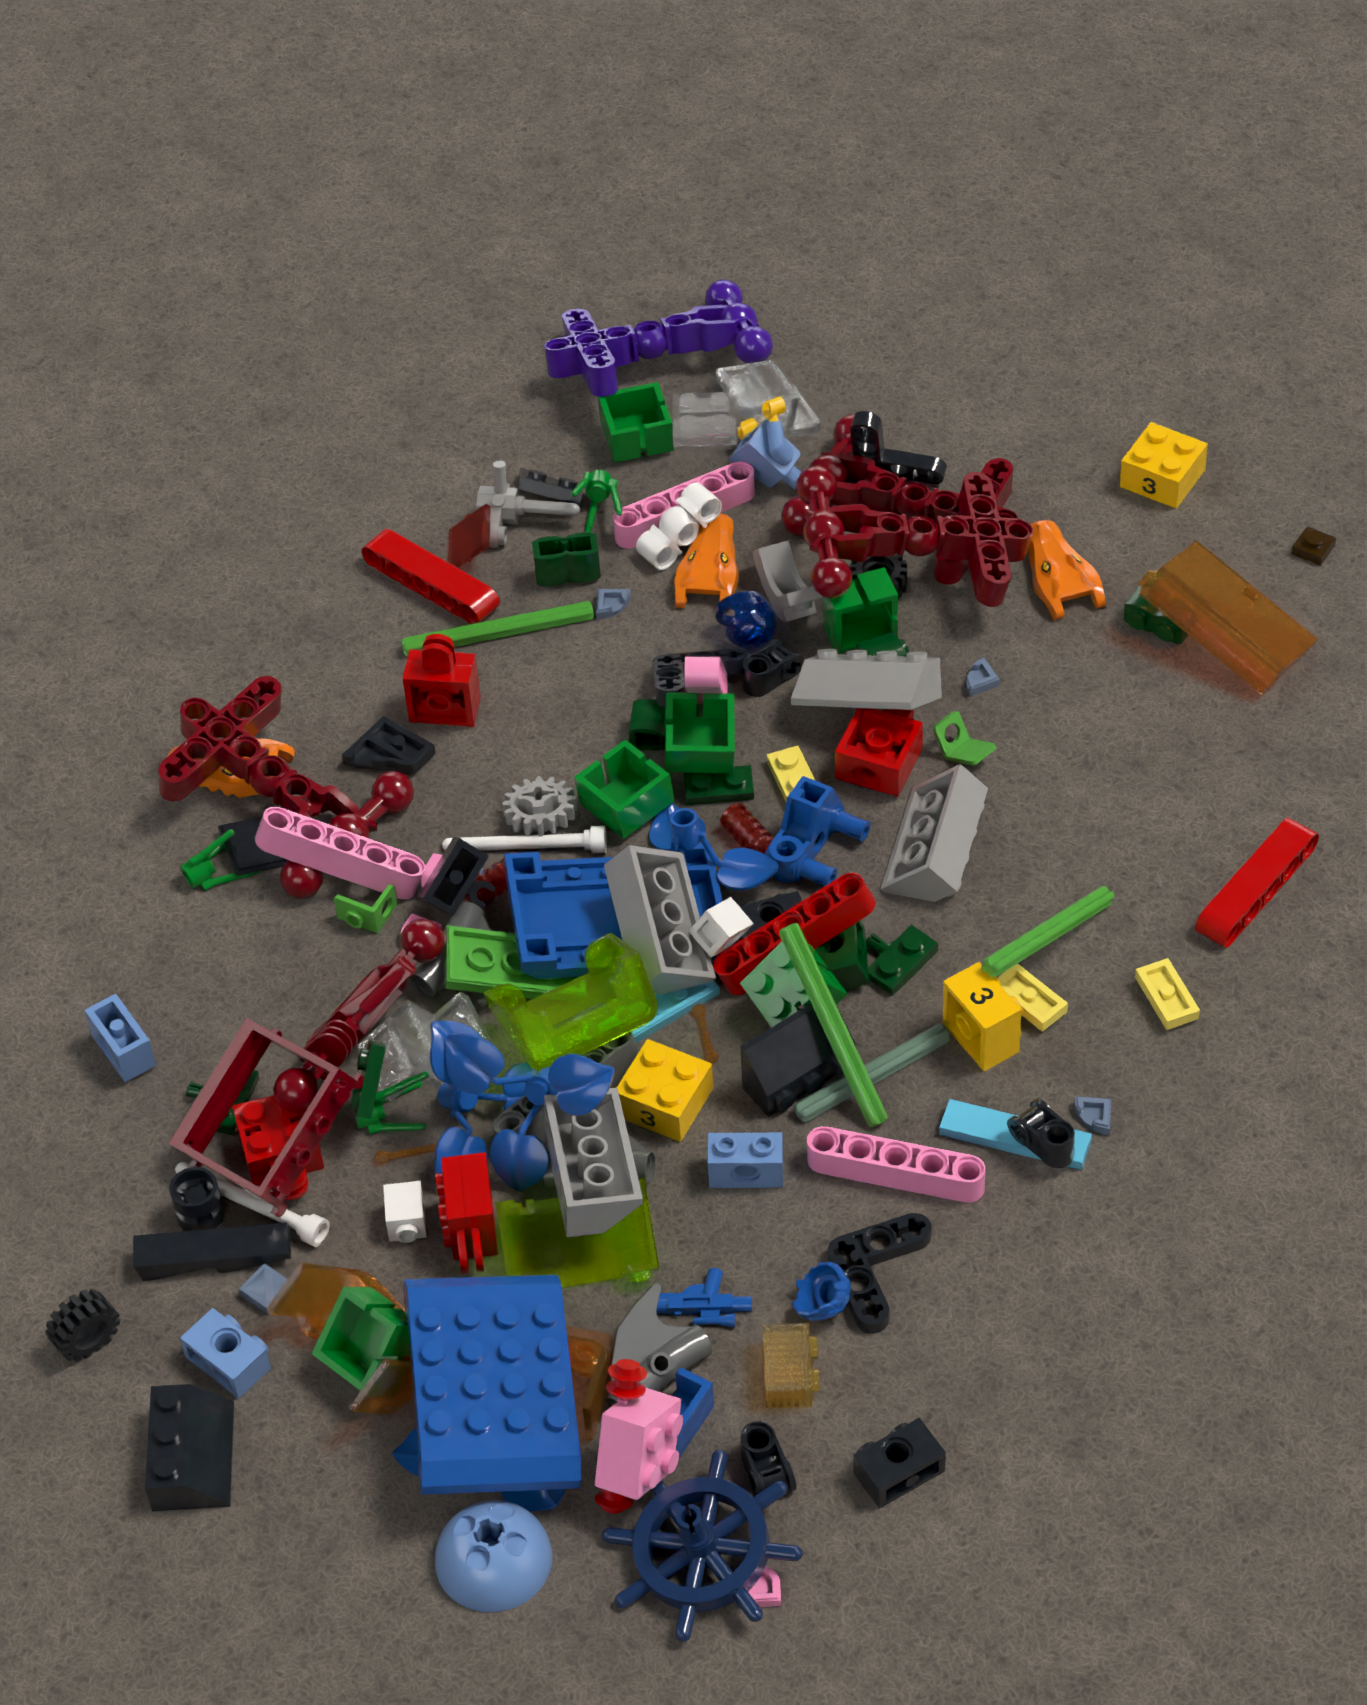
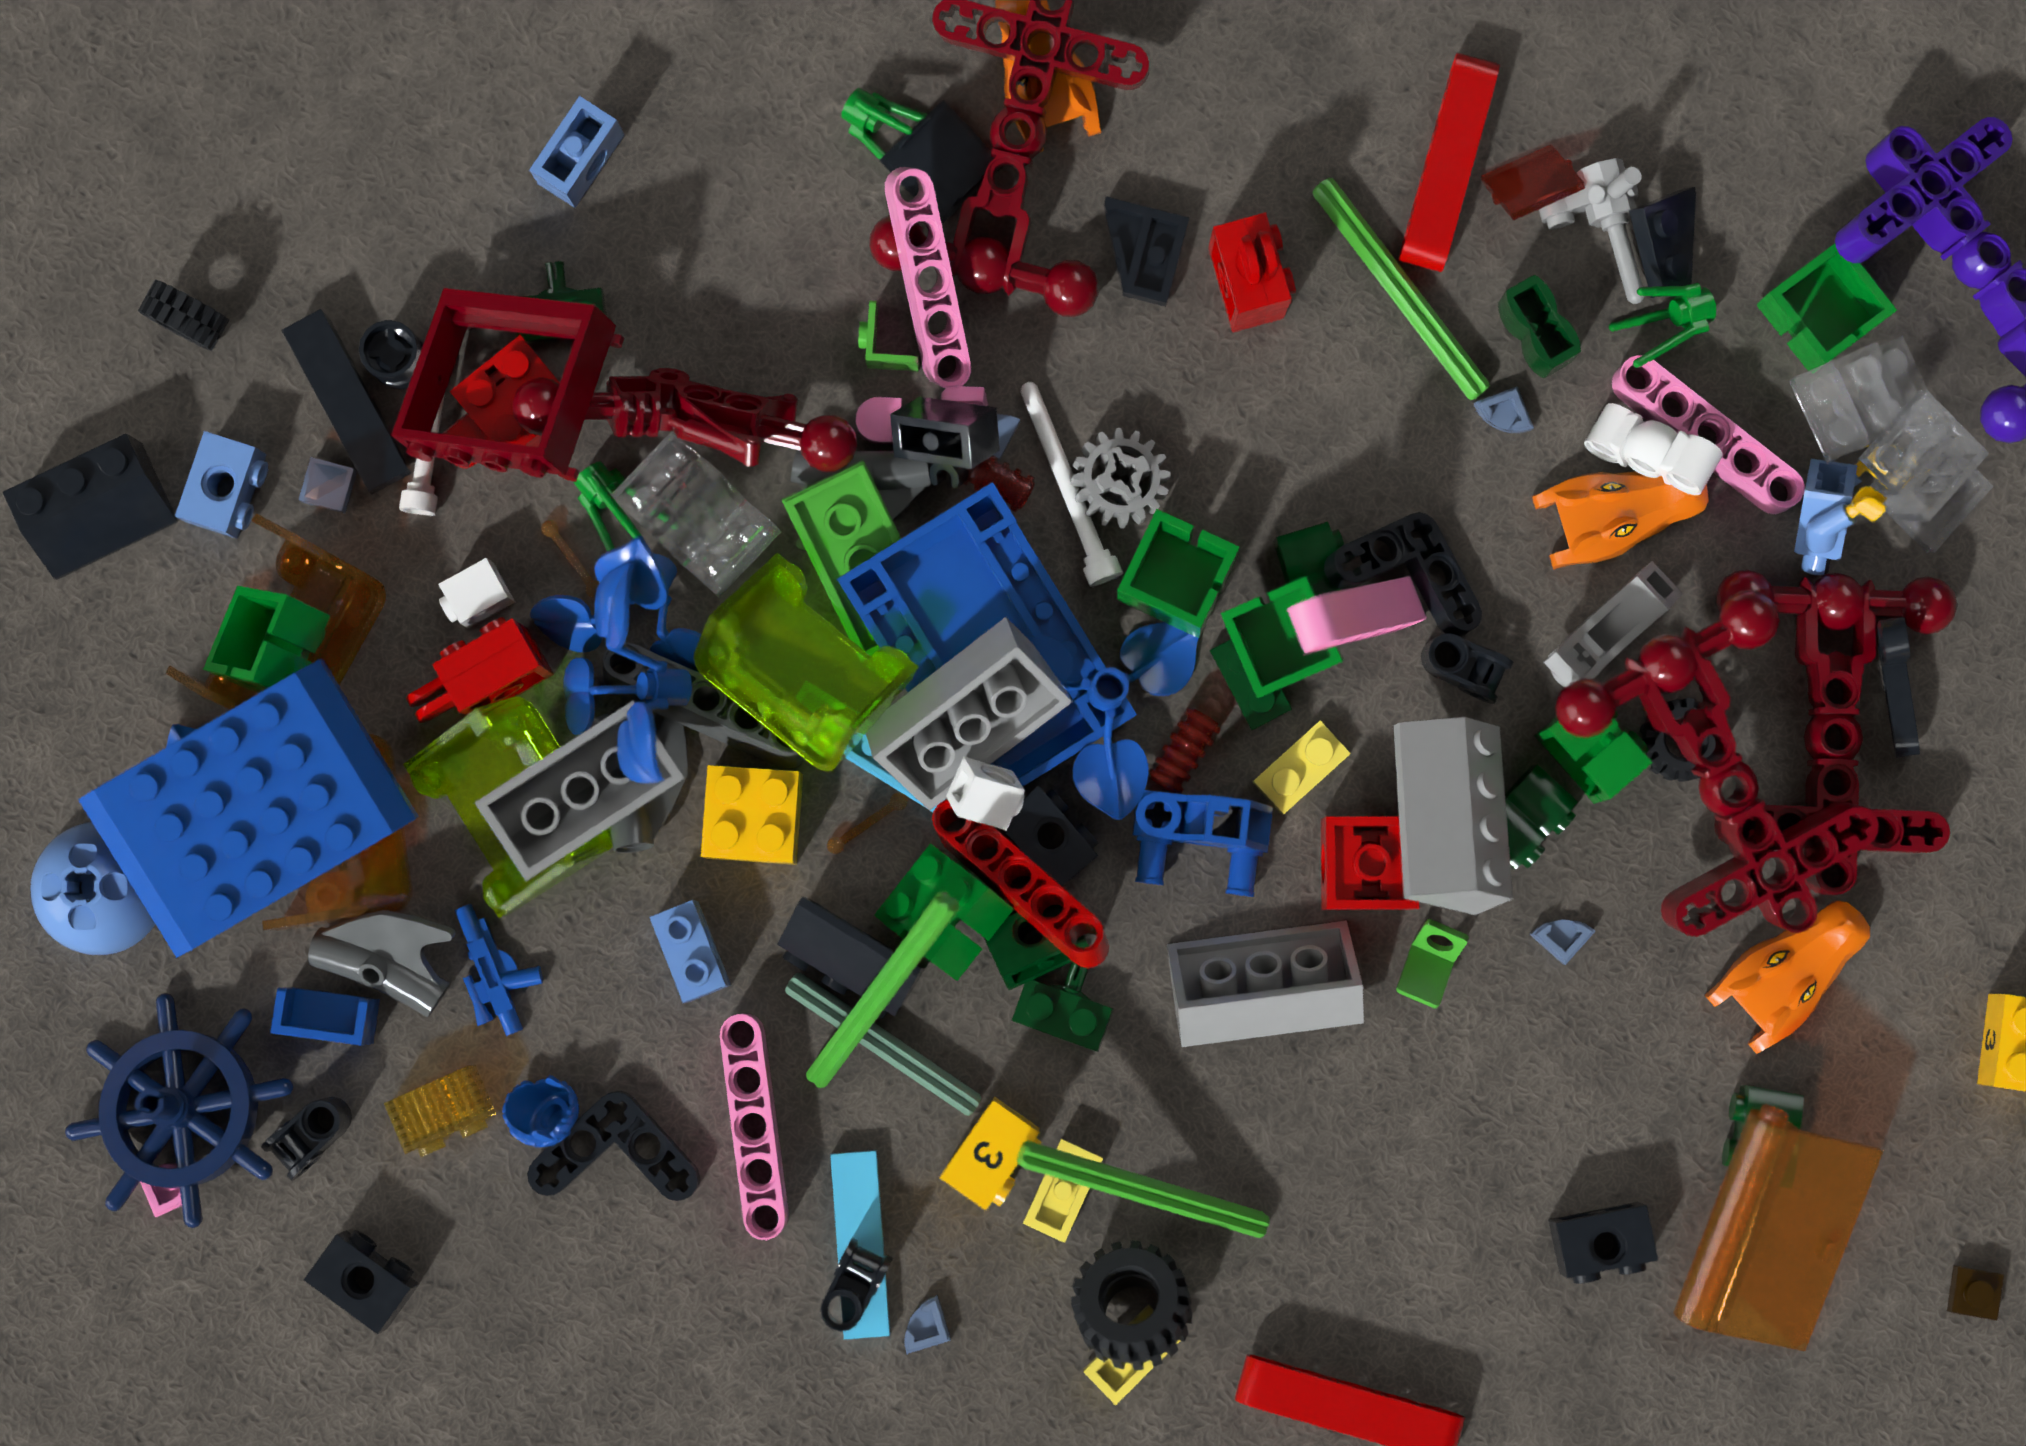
camera: 70 degrees right, 35 degrees up
(370, 1062) = (603, 477): dark green plate -> none
(635, 1438) = (240, 1004): bright pink brick -> none
(753, 619) = (1530, 613): clear blue helmet -> none
(1129, 967) = (1119, 1271): none -> black tyre
(1196, 712) = (1576, 1233): none -> black brick

